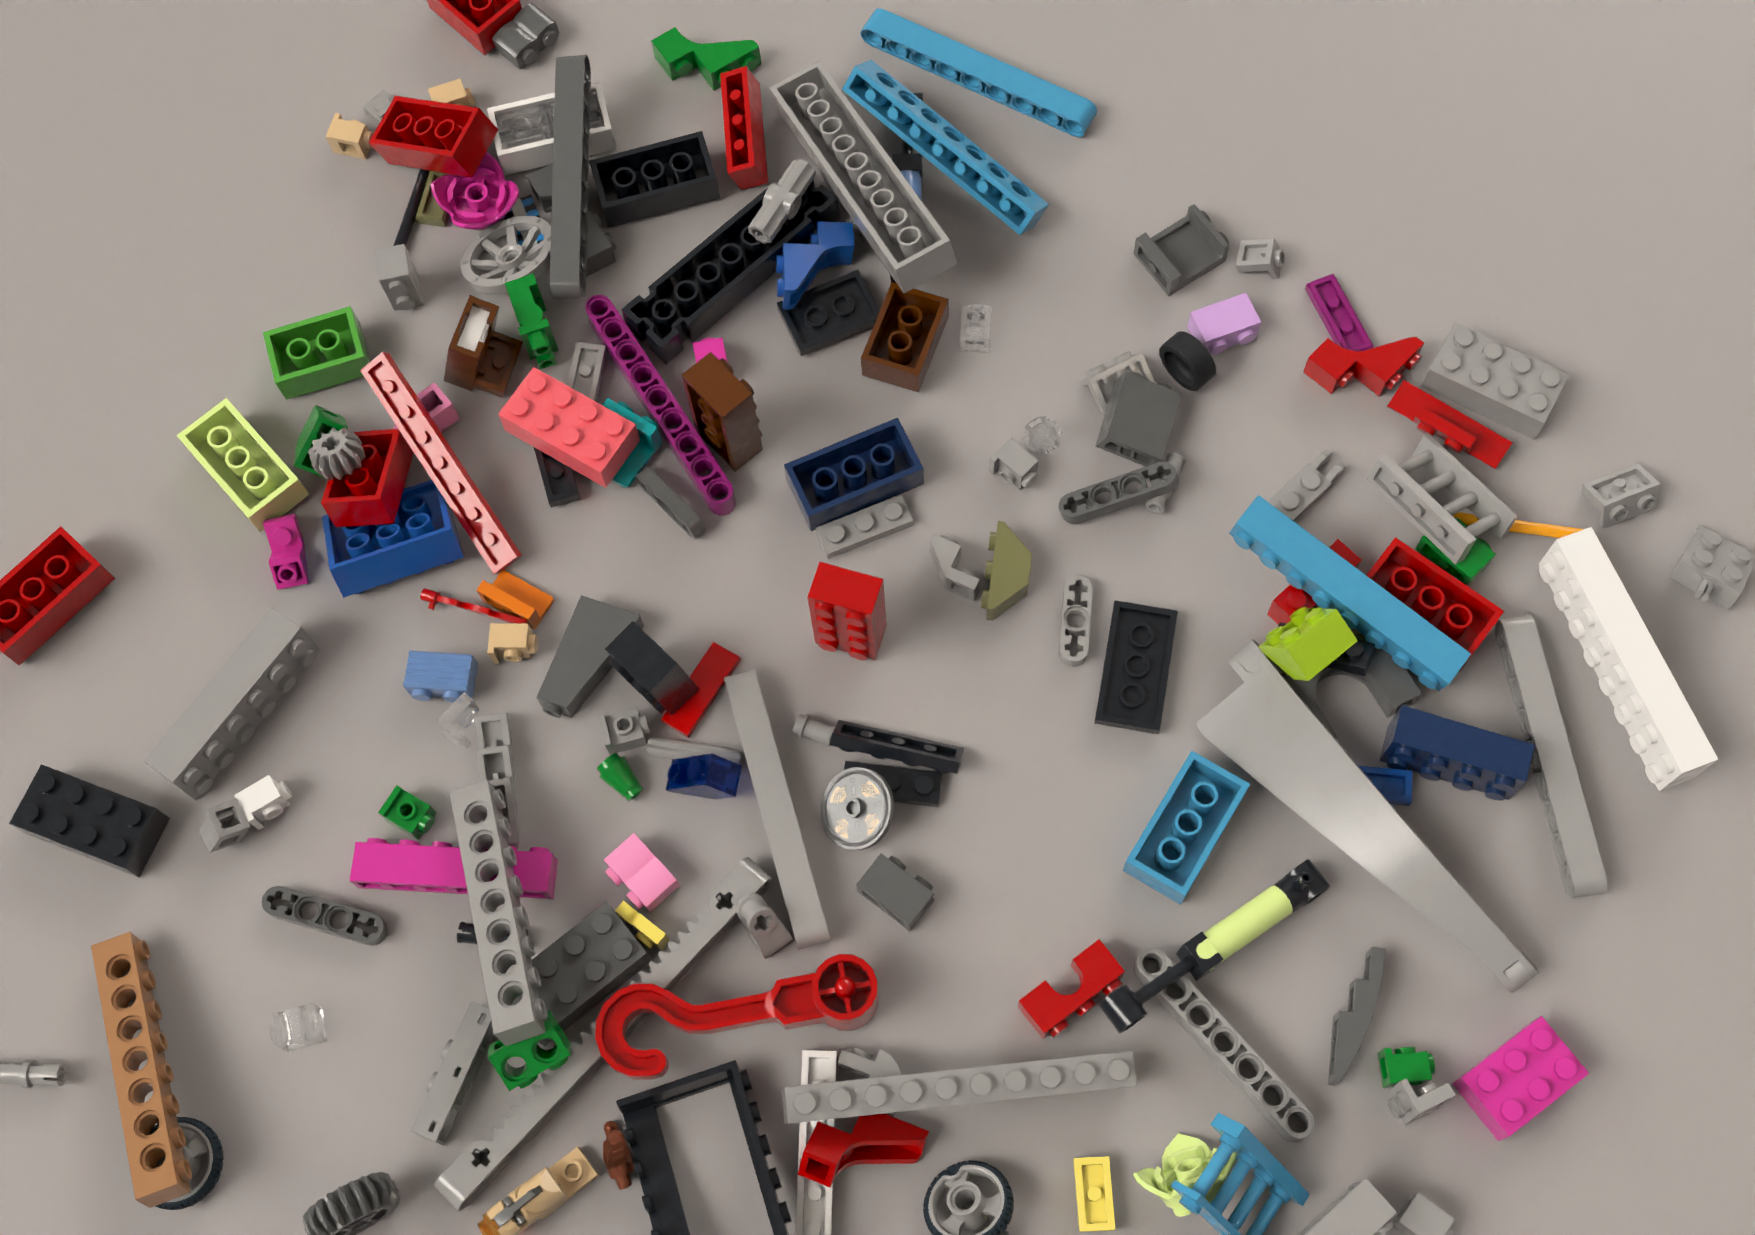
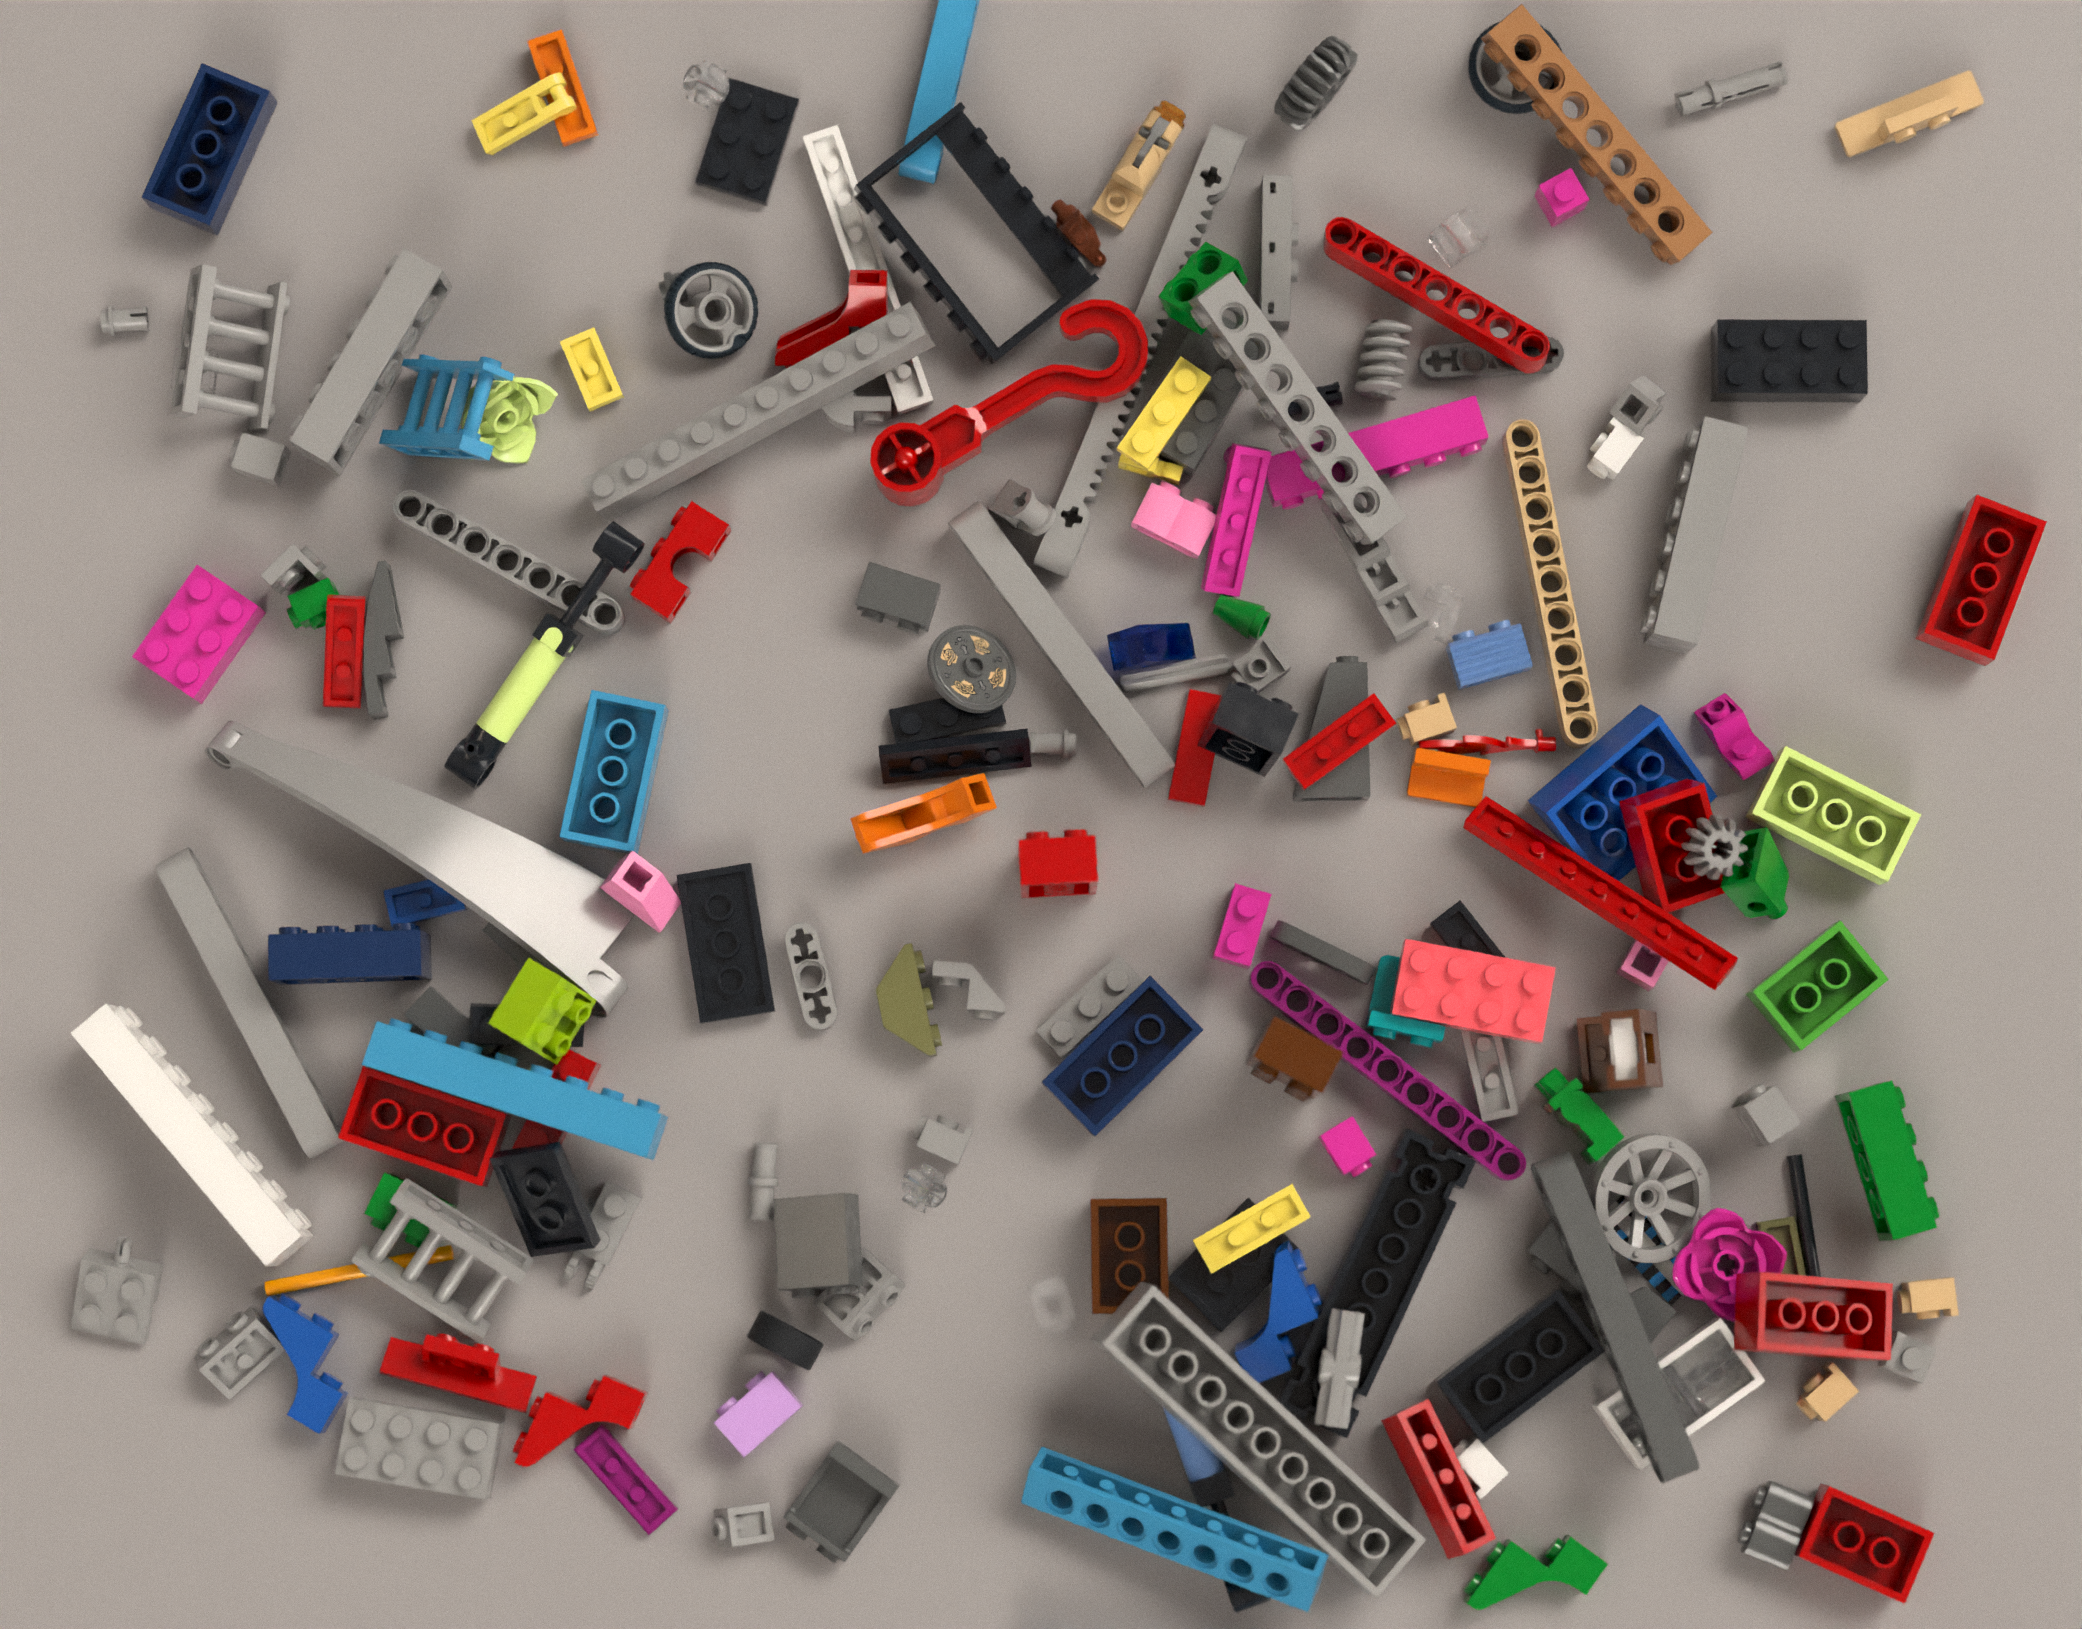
camera: 155 degrees right, 15 degrees up
(198, 1028) = (1561, 197): none -> dark pink brick
(330, 222) = (1887, 1161): none -> green brick
(355, 988) = (1443, 311): none -> red beam
(371, 727) = (1553, 565): none -> tan beam
(397, 806) = (1461, 505): green brick -> none
(410, 944) = (1381, 359): none -> light grey piece
(580, 638) = (1339, 741): none -> red plate
(588, 854) = (1235, 519): none -> dark pink piece
(609, 952) = (1164, 413): none -> light yellow plate
(712, 125) = (1479, 1466): none -> white brick
(723, 539) = (1241, 926): none -> dark pink brick
(806, 323) = (1251, 1228): none -> light yellow plate
(946, 705) = (923, 814): none -> orange arch
(1116, 487) = (814, 1146): dark grey beam -> none
(1194, 726) = (642, 890): none -> bright pink slope
(1345, 514) = (545, 1199): none -> black plate
(1392, 1015) = (344, 651): none -> red tile
(1567, 482) = (307, 1345): none -> blue arch

